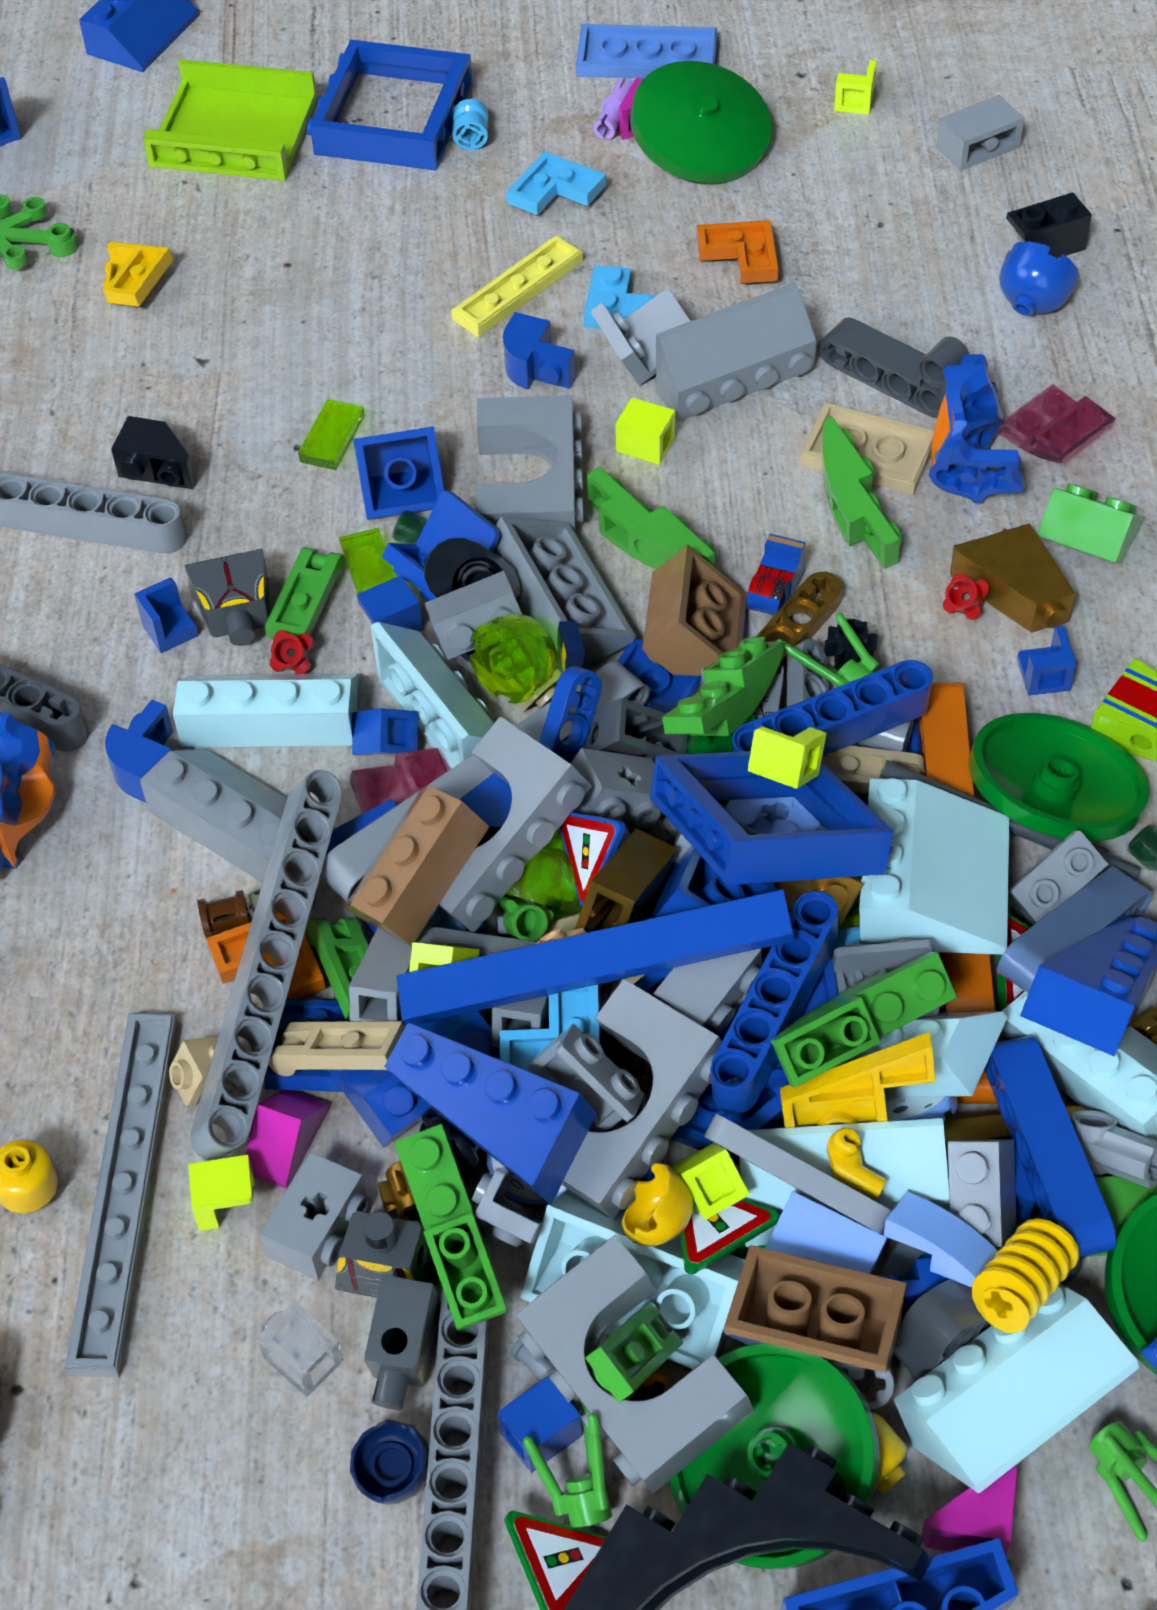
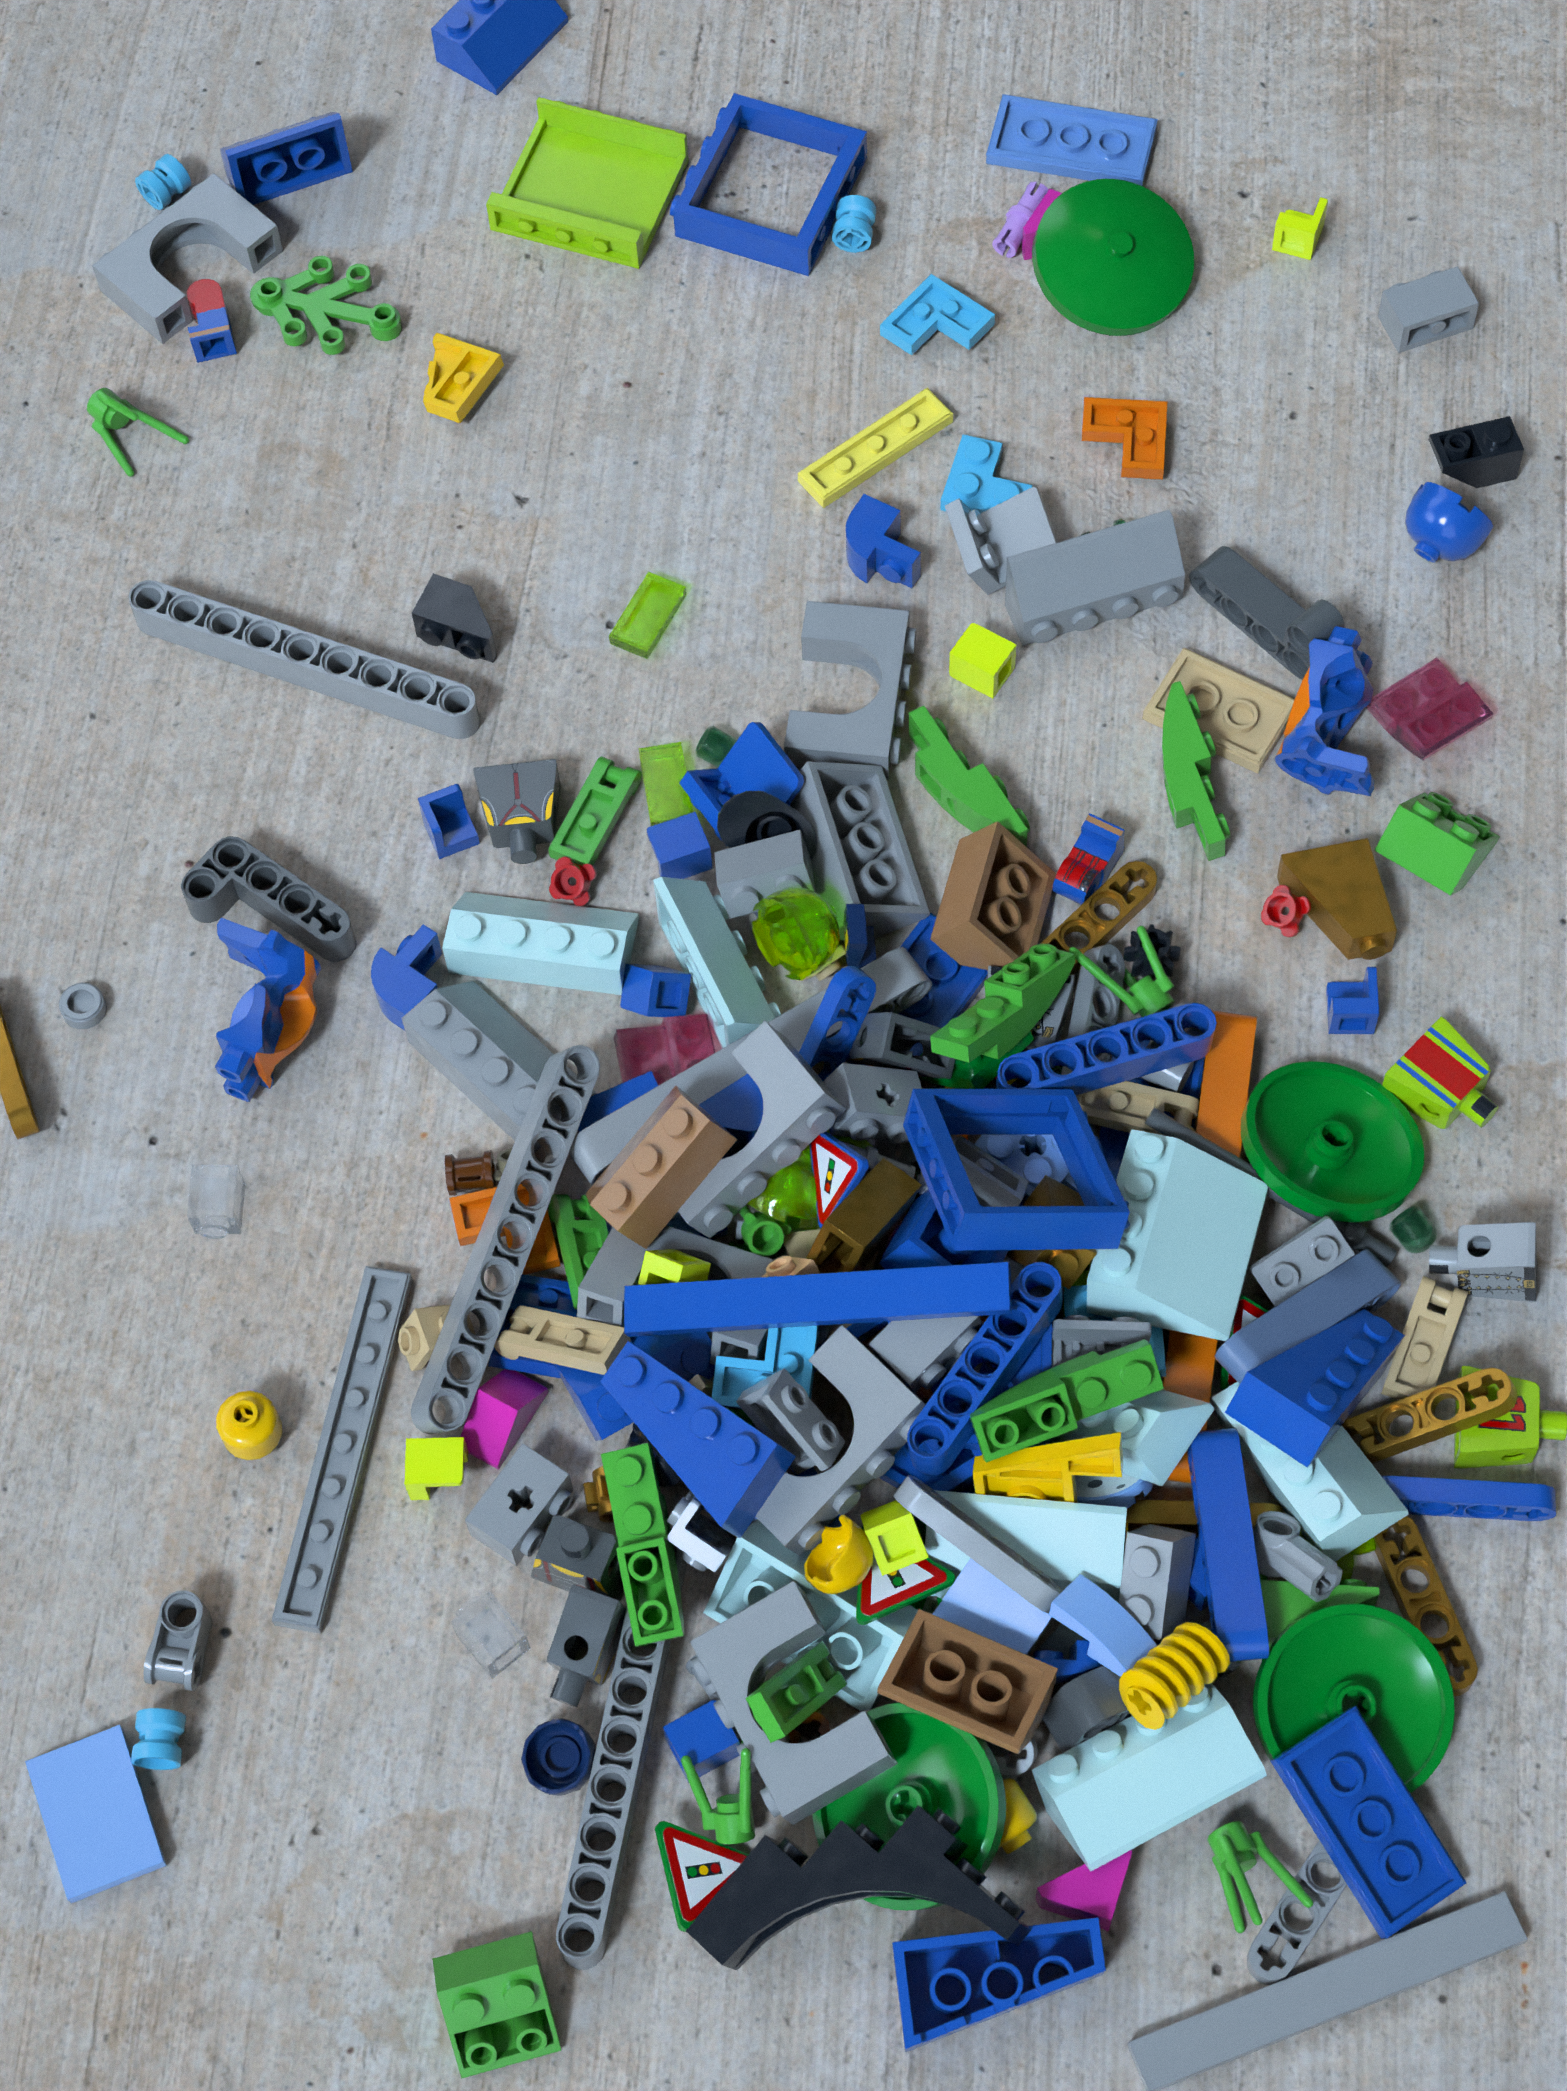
camera: 10 degrees right, 10 degrees up
(399, 472) = (712, 677): blue slope -> none
(787, 758) = (1044, 1113): neon yellow panel -> none
(847, 1164) = (1027, 1541): yellow arm -> none

